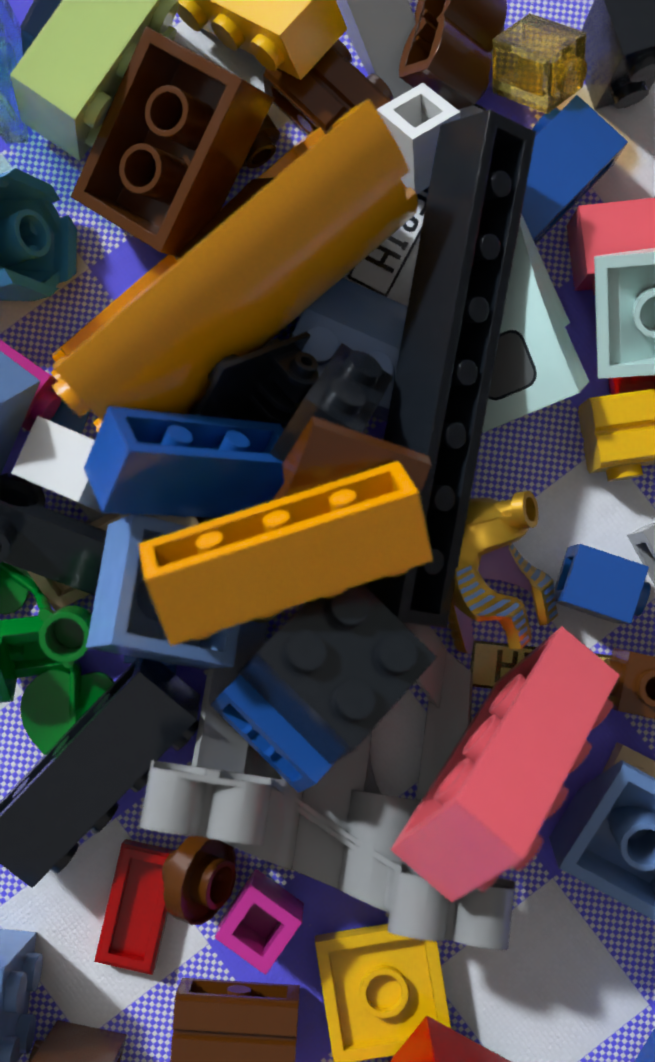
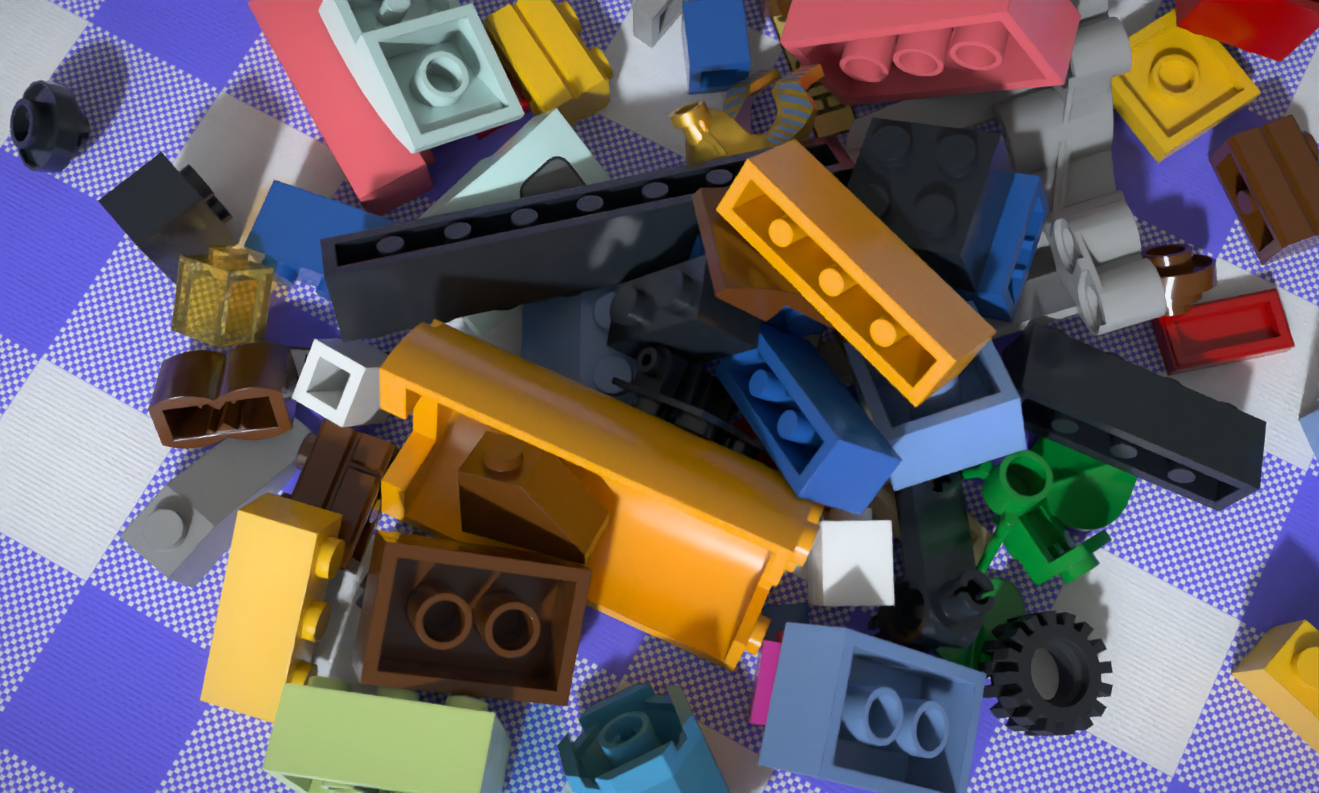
camera: 115 degrees left, 10 degrees down
(260, 921) = (1177, 202): dark pink brick -> none

